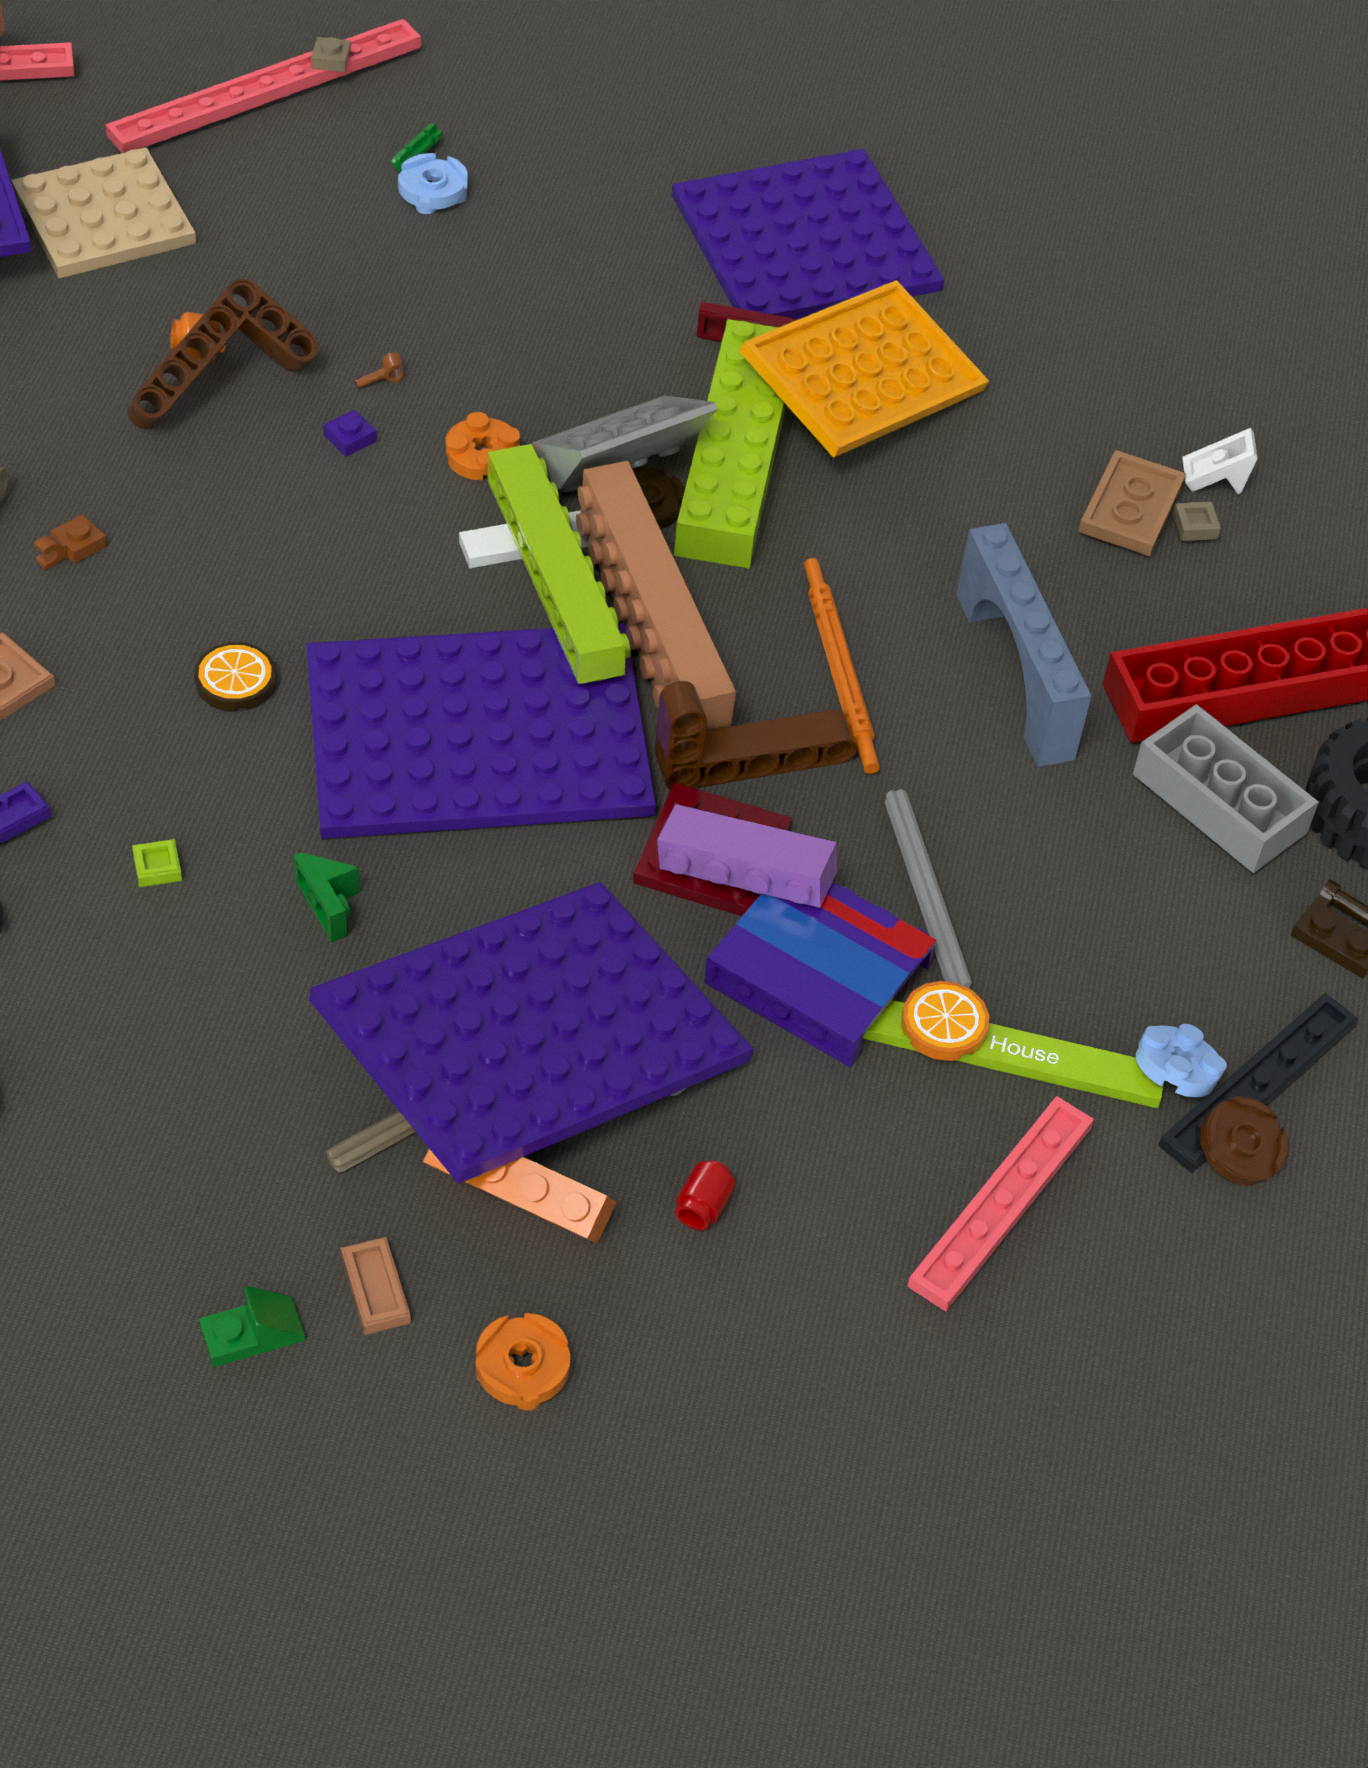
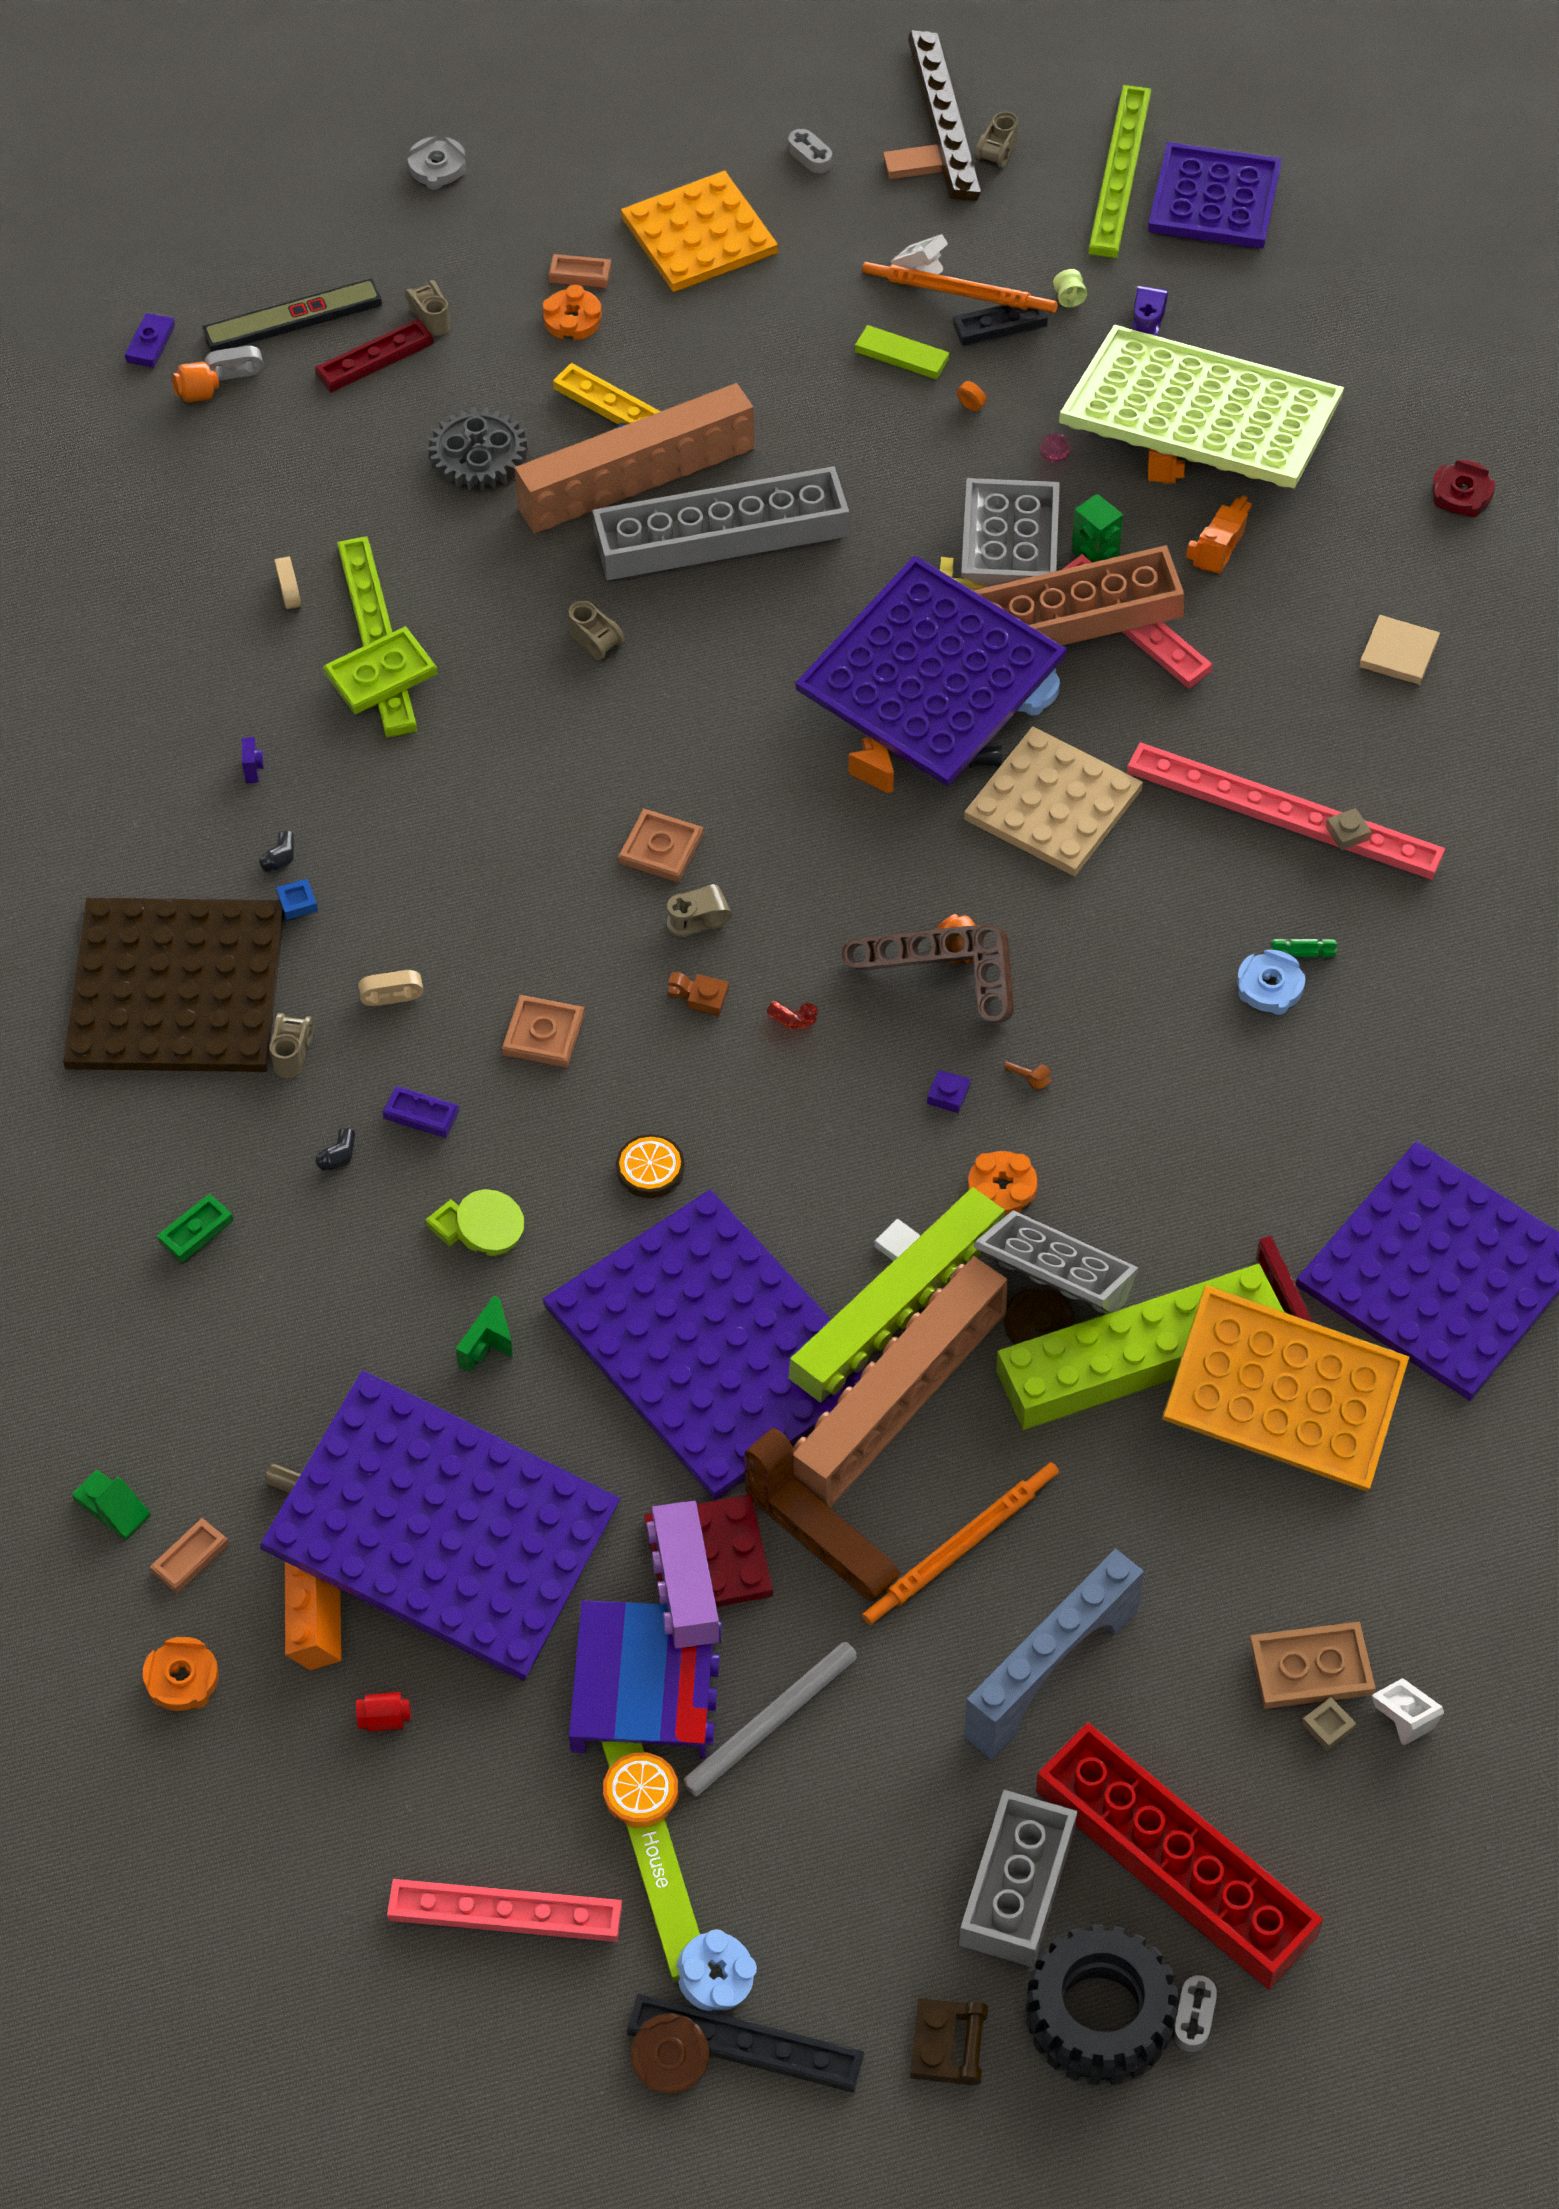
camera: 65 degrees right, 5 degrees up
(167, 493) = (793, 1019): none -> clear red arm
(191, 826) = (489, 1222): none -> lime tile

